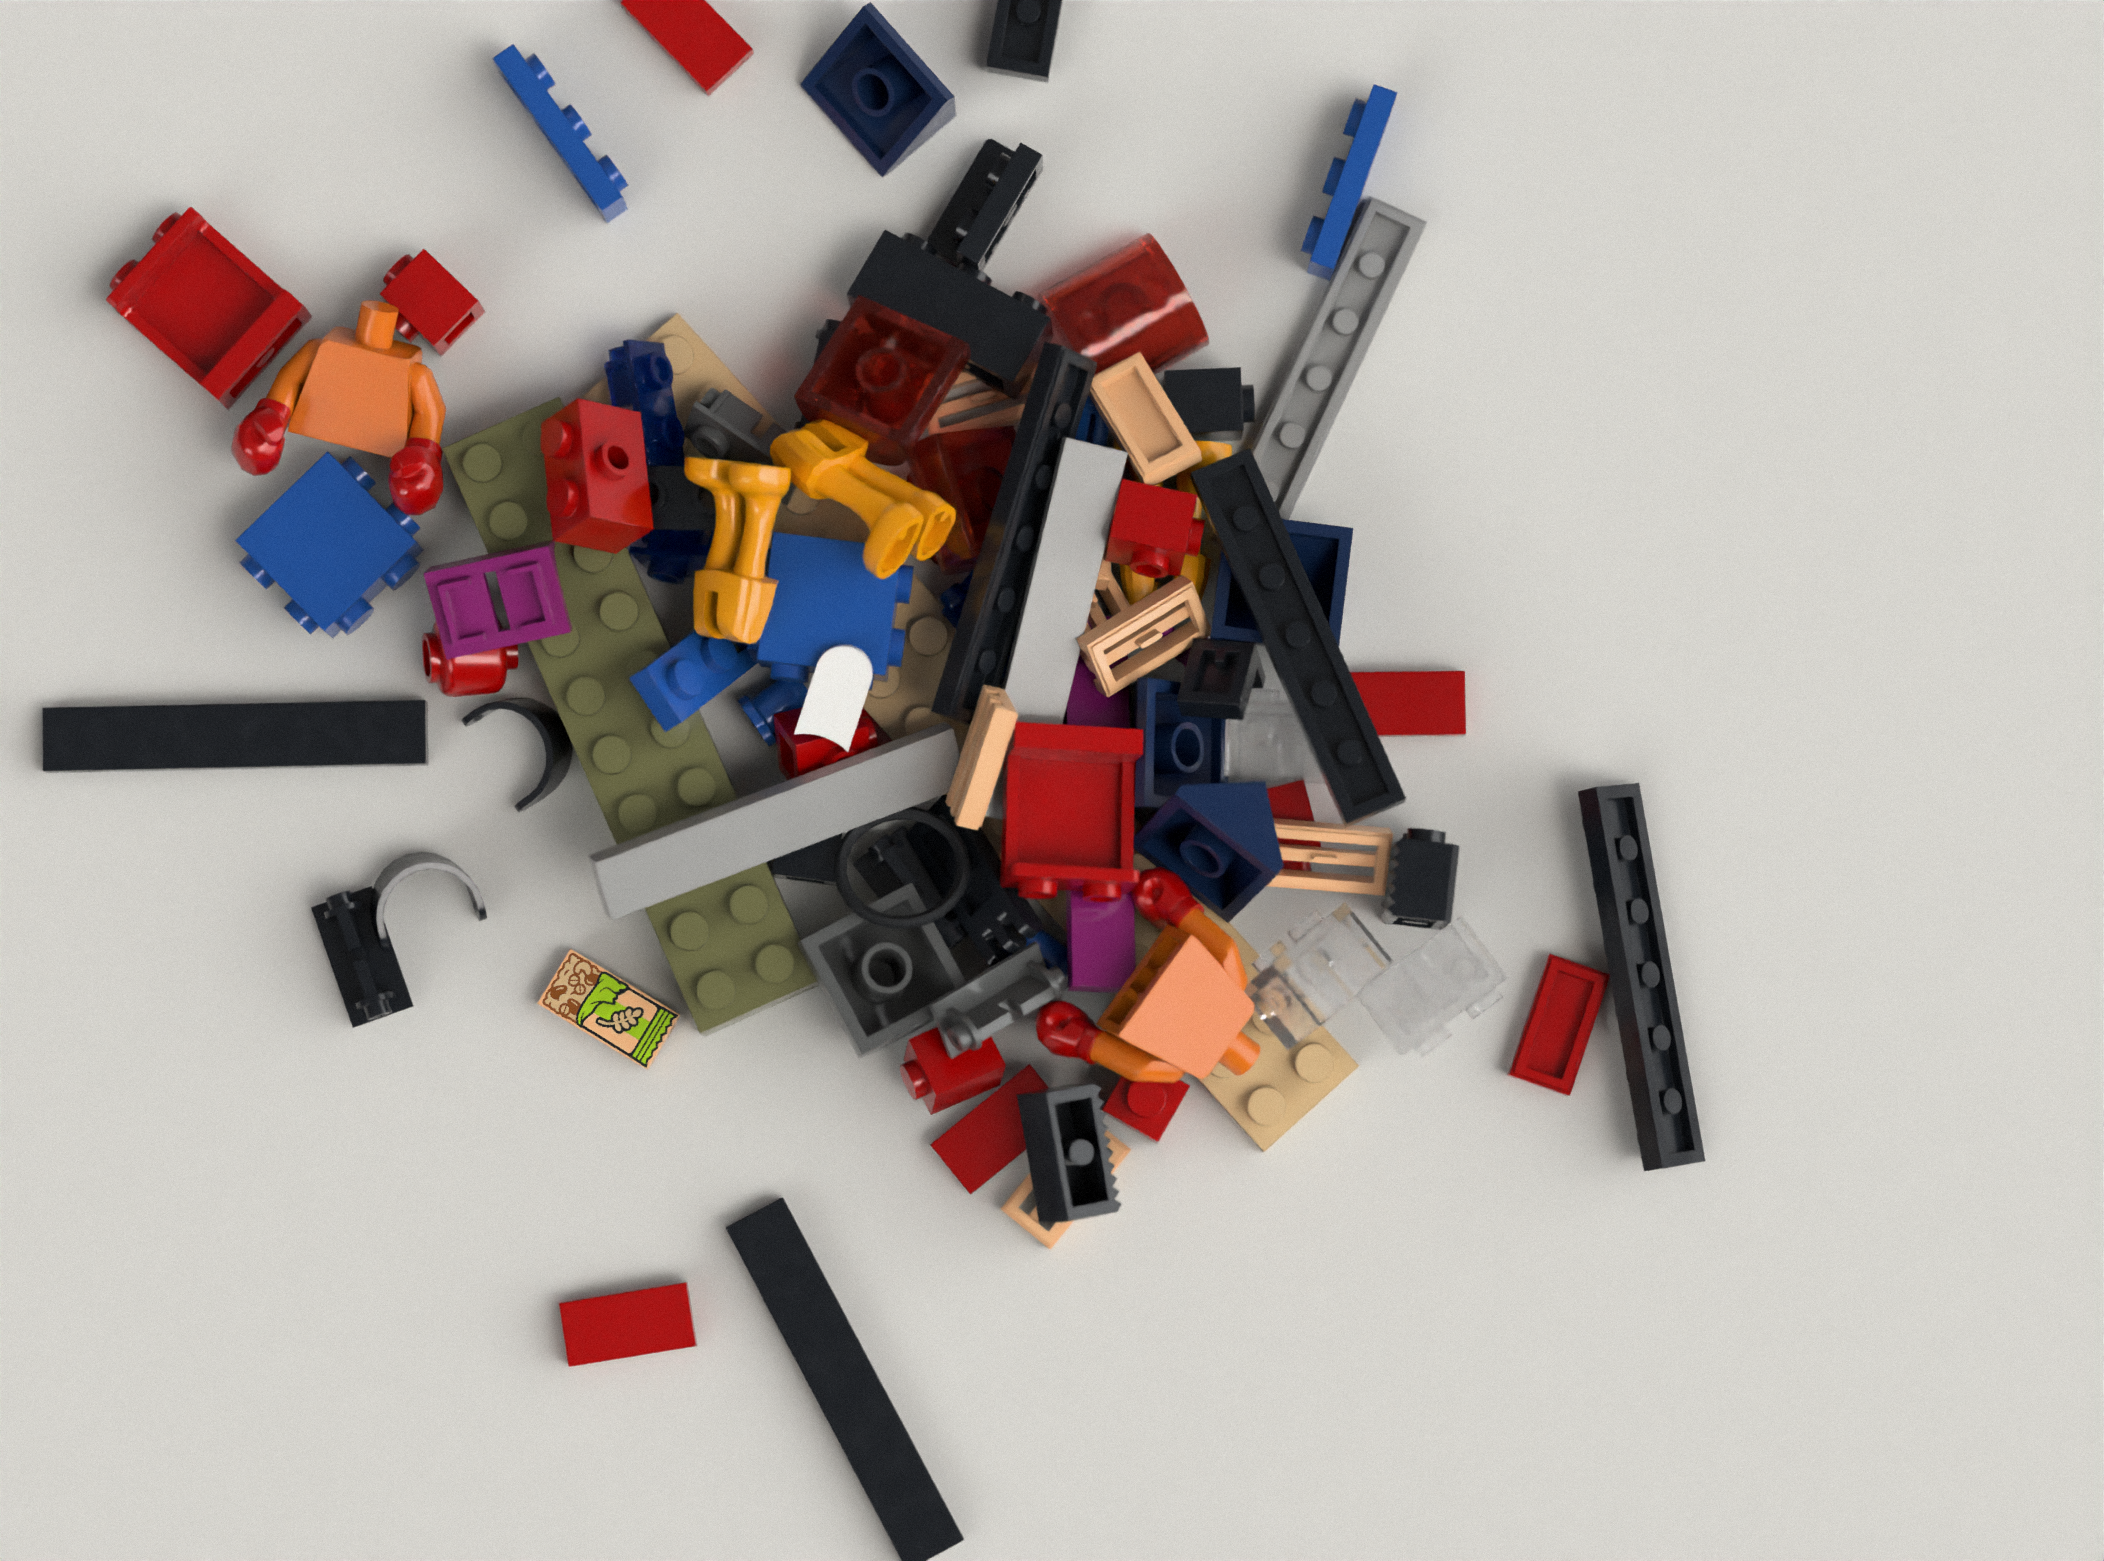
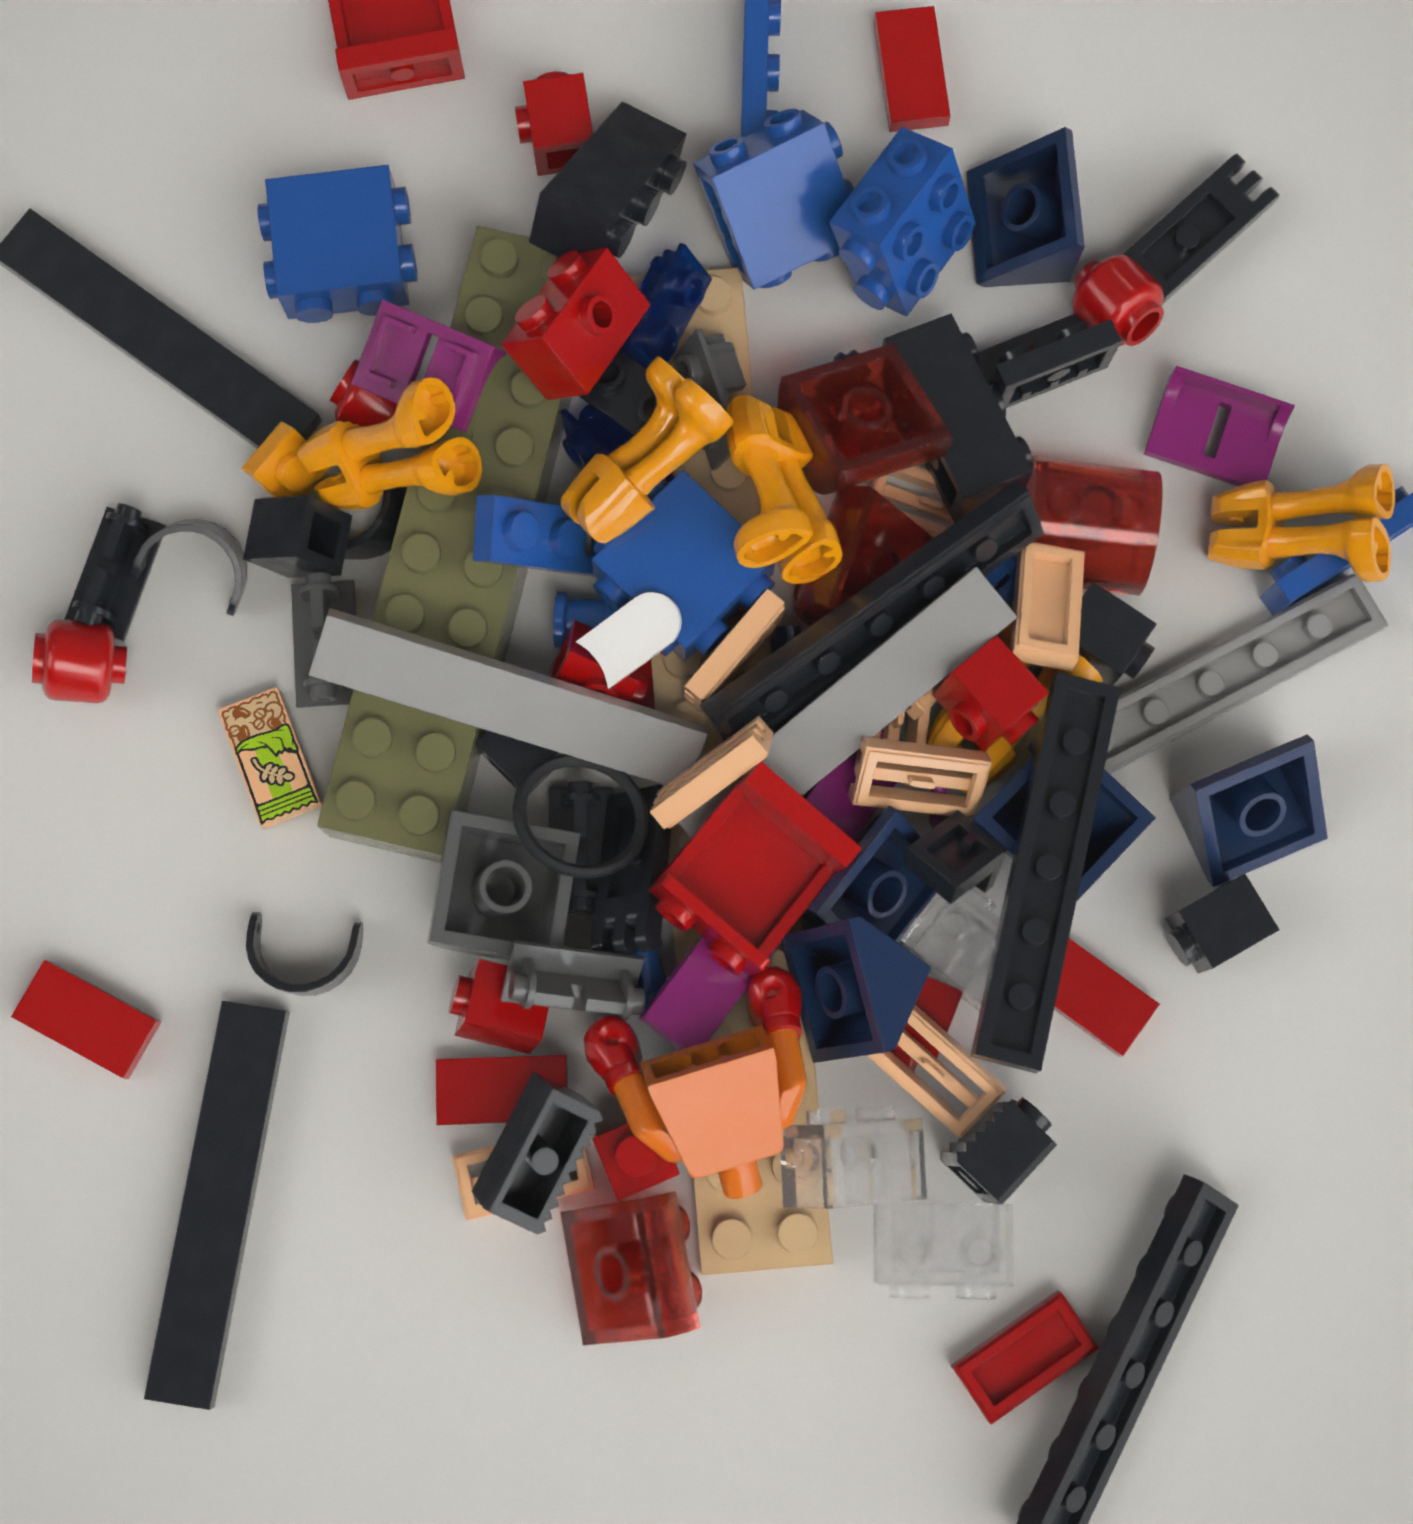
camera: 35 degrees right, 5 degrees down
(358, 394) = (445, 142): orange torso -> none
(395, 1050) = (78, 661): none -> red head
(435, 764) = (277, 466): none -> light orange plate
(494, 720) = (420, 419): none -> light orange piece
(494, 815) = (297, 536): none -> black brick
(526, 331) = (610, 185): none -> black brick
(562, 869) = (309, 612): none -> dark grey hinge
(671, 235) = (776, 195): none -> brick
(782, 1171) = (314, 988): none -> black helmet
(790, 183) = (903, 222): none -> blue brick
(922, 644) = (735, 649): none -> light nougat tile
(1010, 109) = (1120, 292): none -> red head
(1202, 150) = (1187, 417): none -> magenta piece
(1206, 1187) = (632, 1269): none -> clear red brick
(1357, 184) = (1359, 541): none -> light orange piece
(1429, 460) = (1254, 811): none -> dark blue slope
(1465, 573) = (1219, 925): none -> black brick

